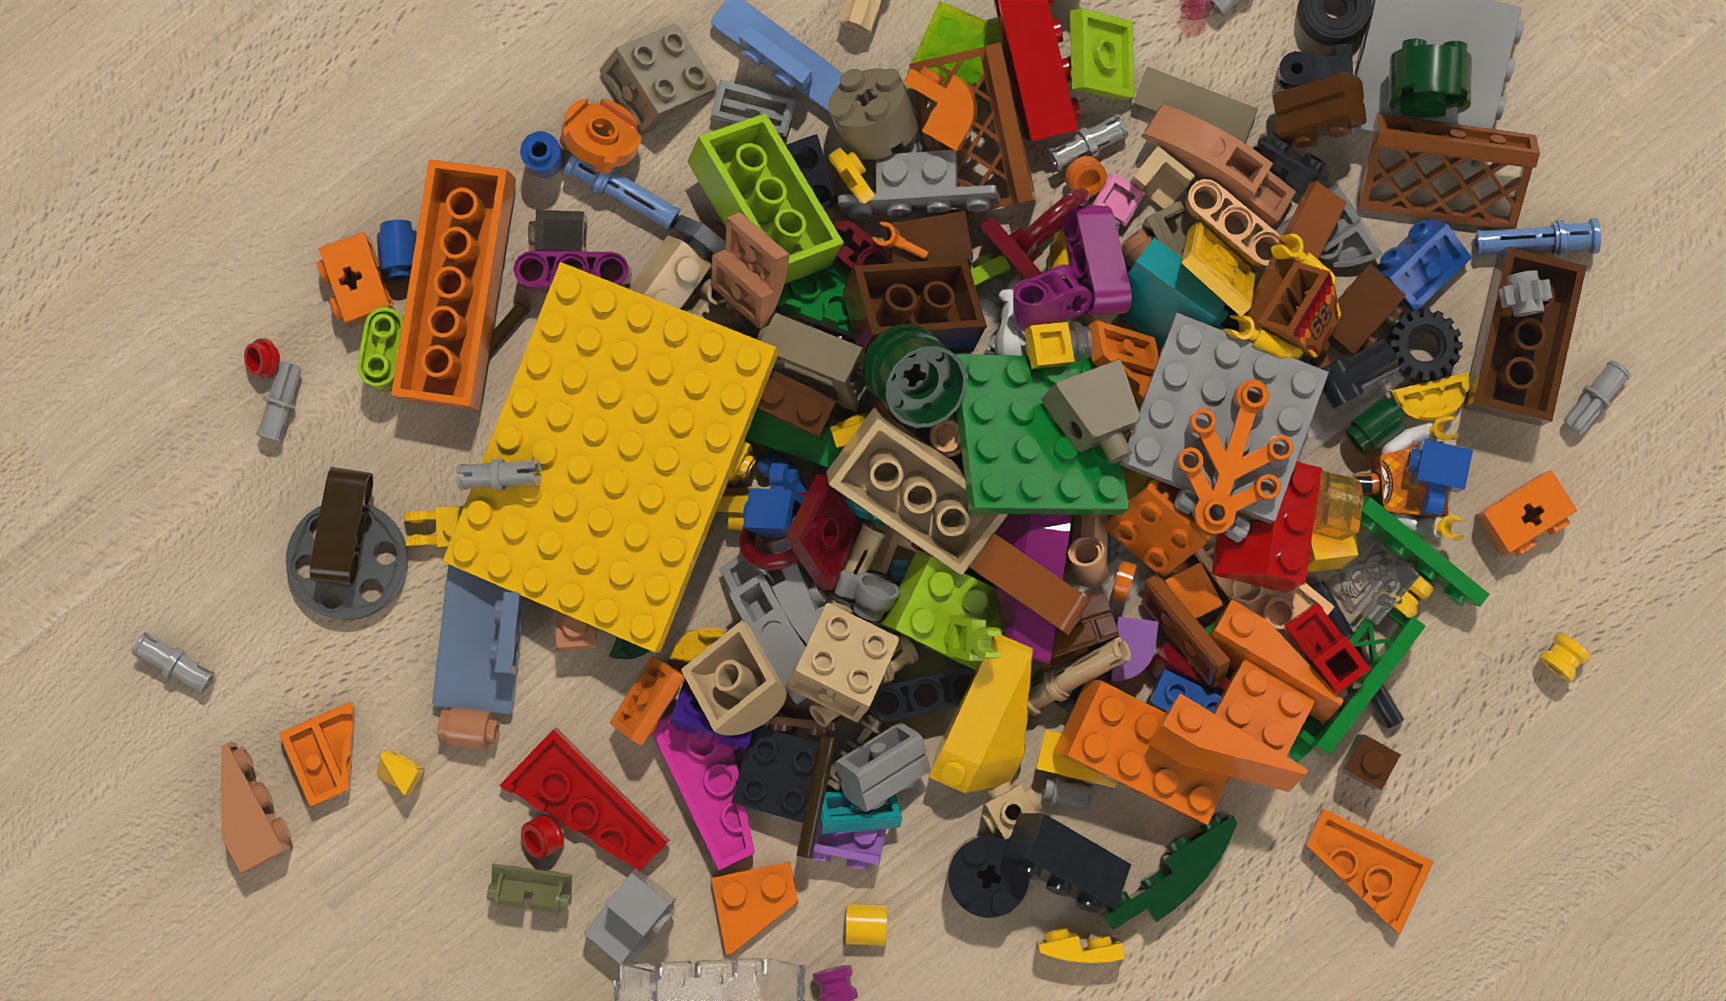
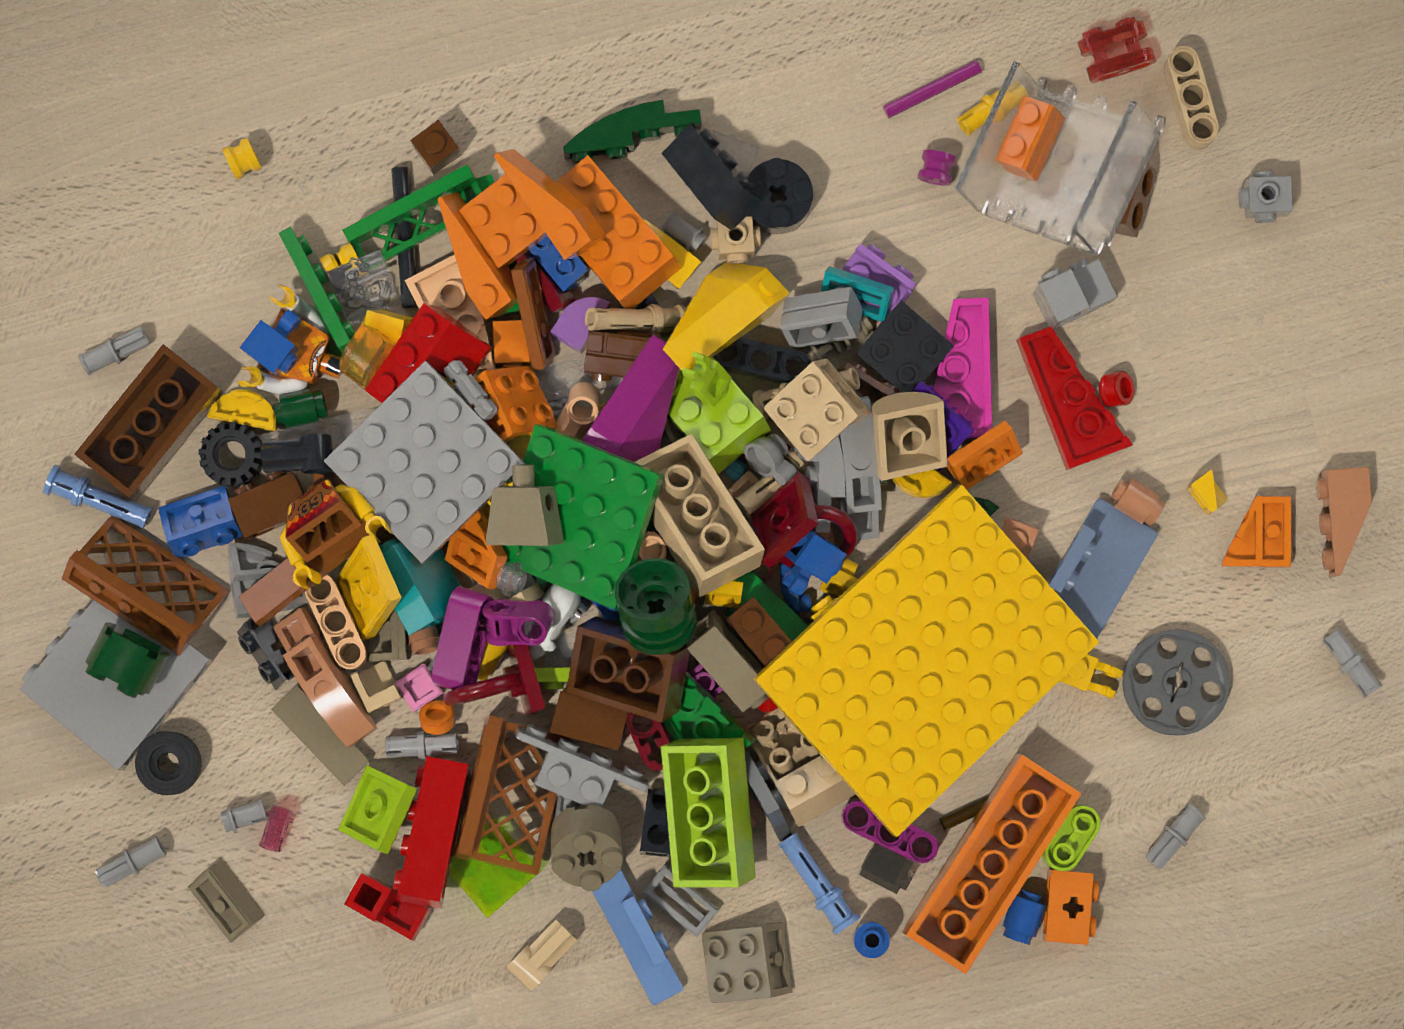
camera: 160 degrees left, 0 degrees up
(262, 358) = (1173, 878): red plate -> none
(341, 526) = (1168, 707): dark brown beam -> none
(498, 474) = (1023, 686): light grey pin -> none
(546, 889) = (1130, 345): olive hinge -> none
(600, 151) = (827, 922): orange plate -> none
(750, 270) = (747, 756): nougat slope -> none
(752, 900) = (972, 263): orange wing -> none
(816, 796) = (885, 317): dark brown bar -> none
(850, 171) = (626, 808): yellow plate -> none
(866, 924) = (890, 204): yellow brick -> none
(900, 242) = (613, 728): orange hand -> none
(955, 108) = (517, 822): orange brick -> none
(1030, 584) = (641, 399): dark orange beam -> none
(1049, 345) = (536, 583): yellow tile -> none
(1067, 947) = (742, 114): yellow slope -> none
(1123, 581) = (563, 375): orange tile -> none
(1230, 463) = (438, 421): orange plant -> none
(1300, 69) = (222, 722): black leg -> none
(1320, 109) = (223, 681): reddish brown brick -> none
(1326, 648) = (429, 247): red brick -> none
(1371, 866) = (472, 67): orange wing -> none
(1525, 293) = (136, 451): light grey gear -> none
(1542, 495) = (234, 291): orange brick -> none

